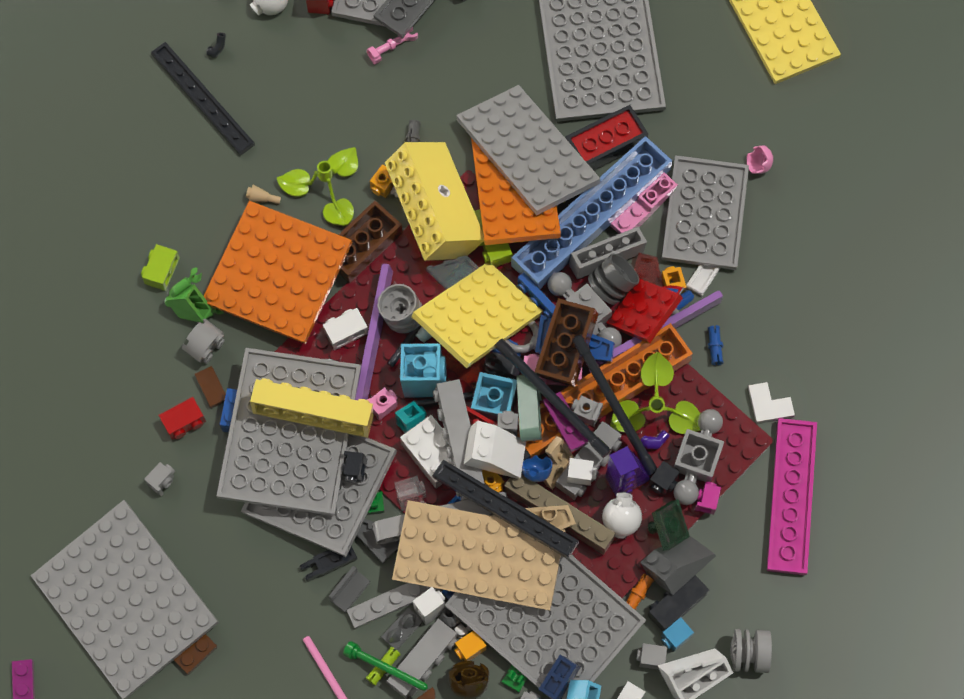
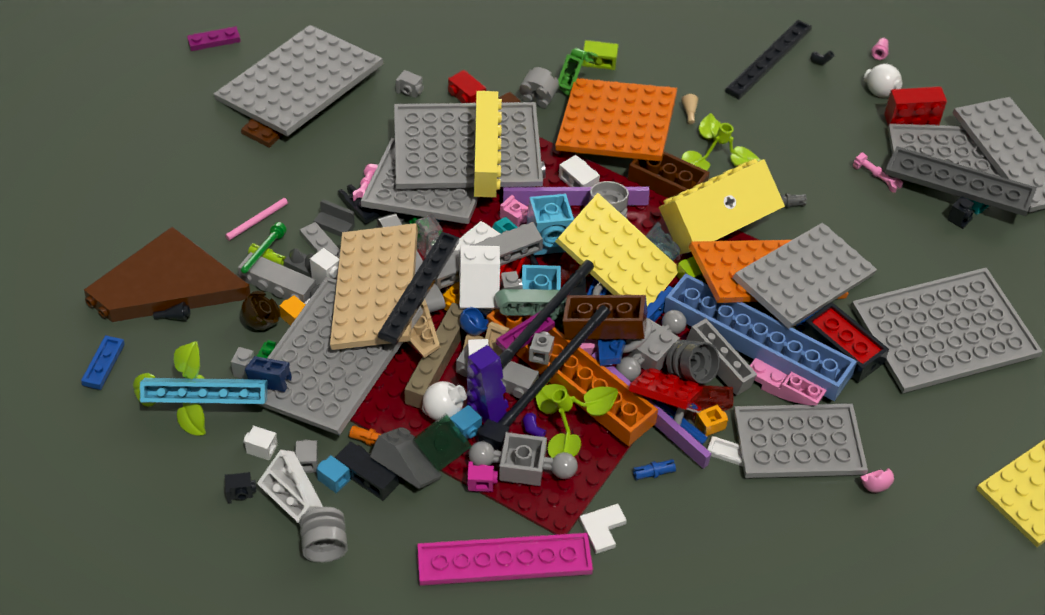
camera: 75 degrees right, 20 degrees down
(287, 540) = (368, 172): none -> bright pink piece
(354, 466) = (443, 190): black brick -> none
(647, 500) = (467, 421): none -> dark azure brick

